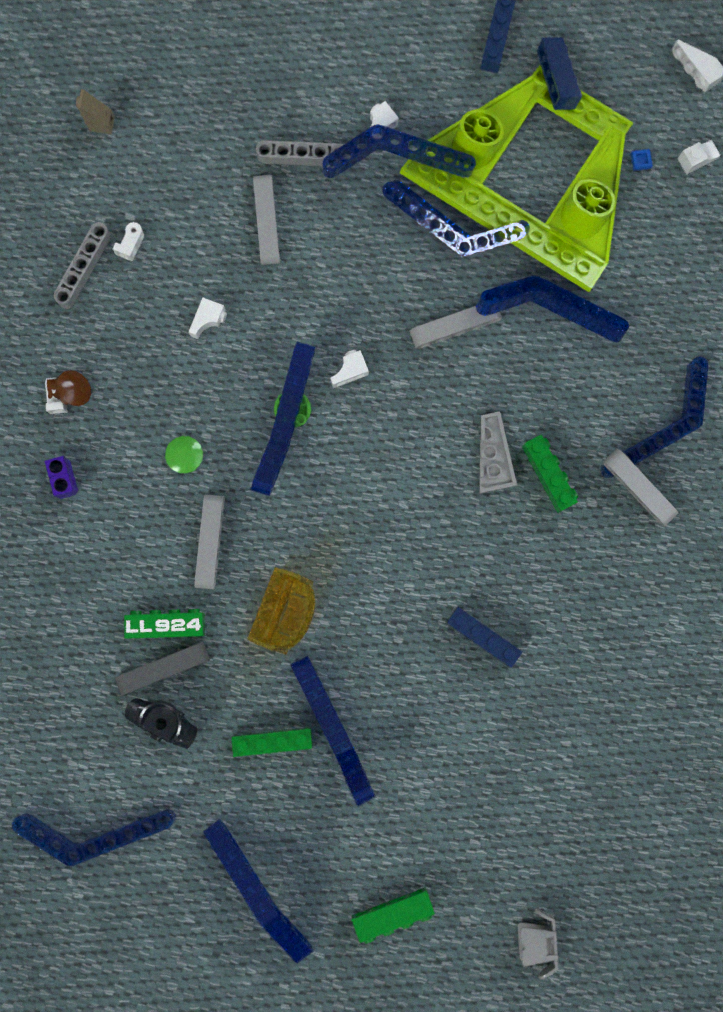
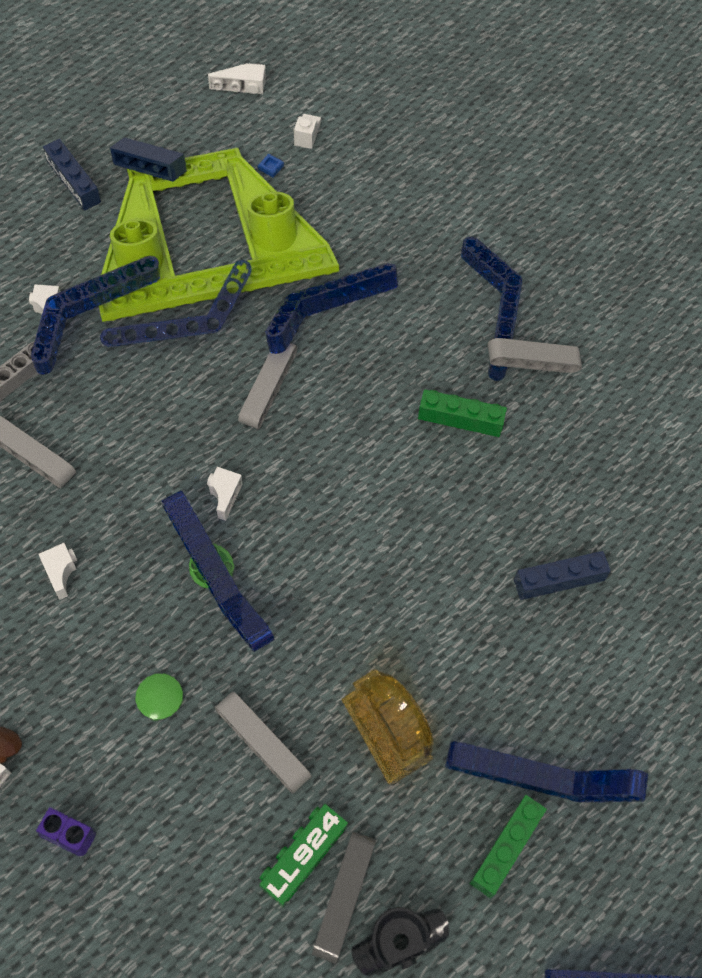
camera: 50 degrees left, 20 degrees down
(495, 459) = (410, 444): light grey wing -> none

